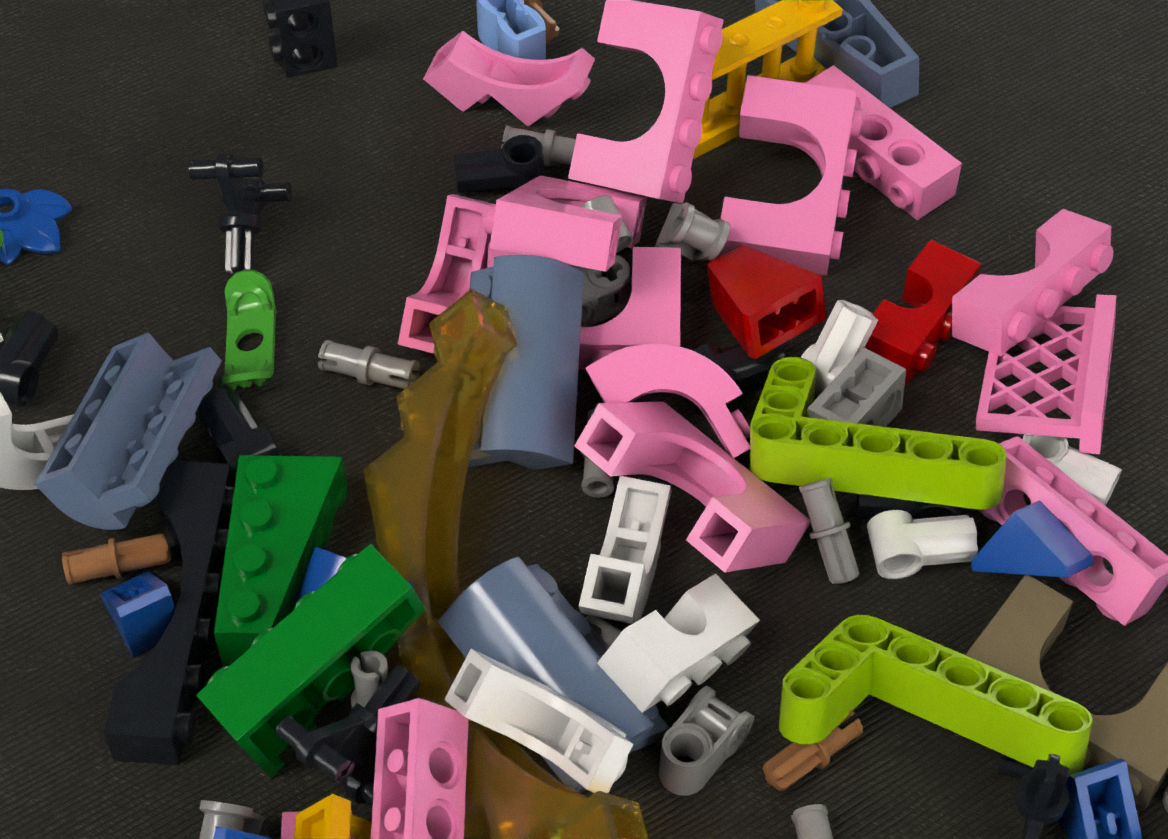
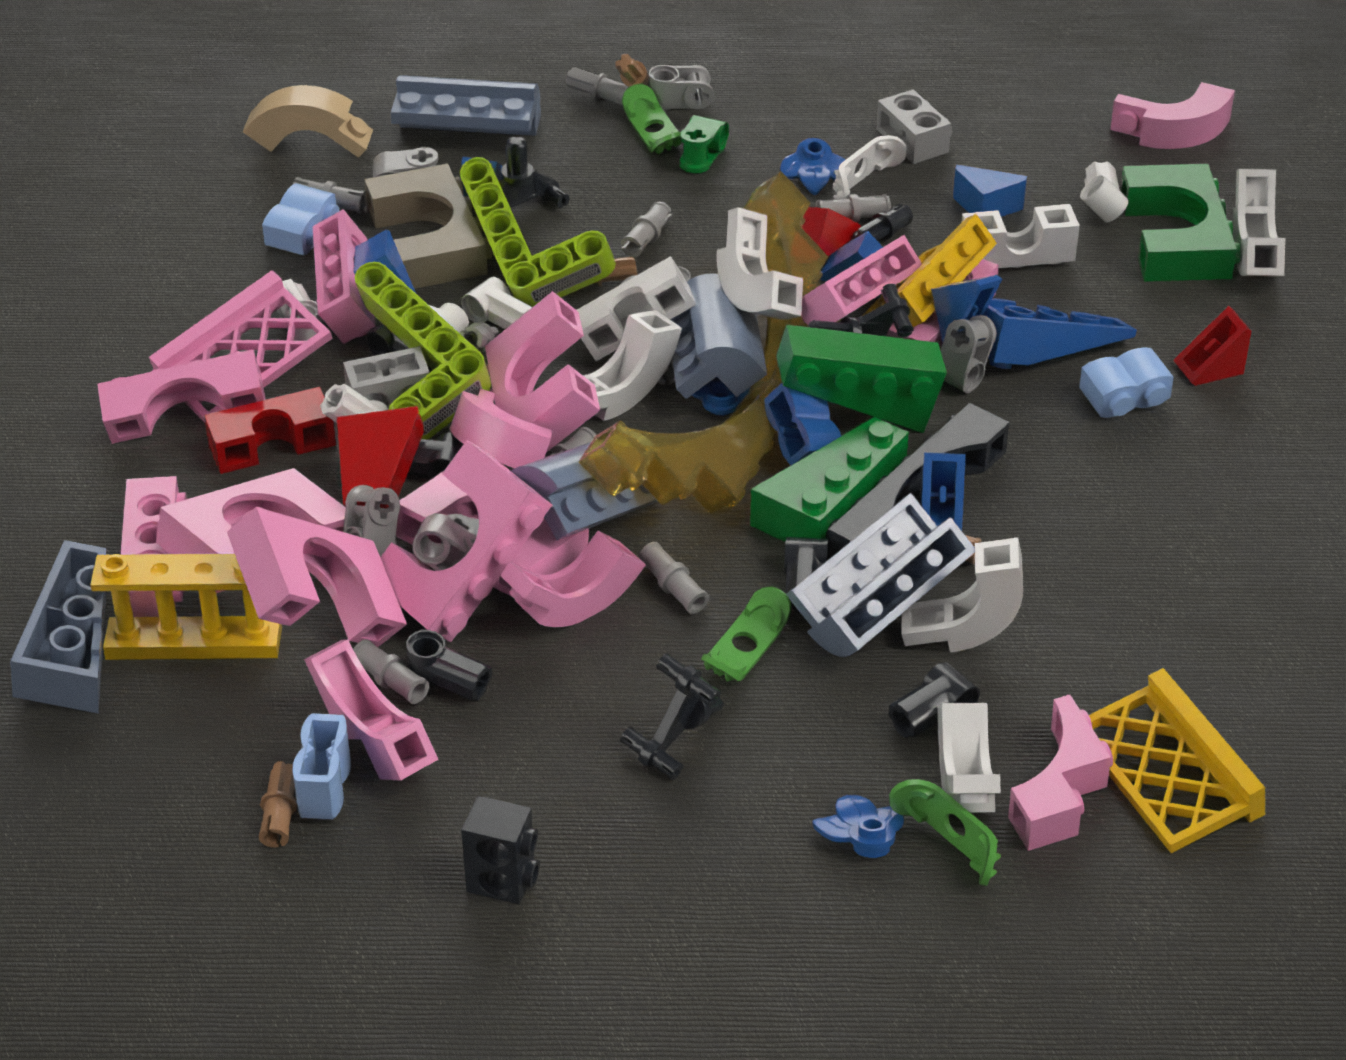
camera: 145 degrees left, 10 degrees down
(885, 598) = (493, 303): none -> white piece

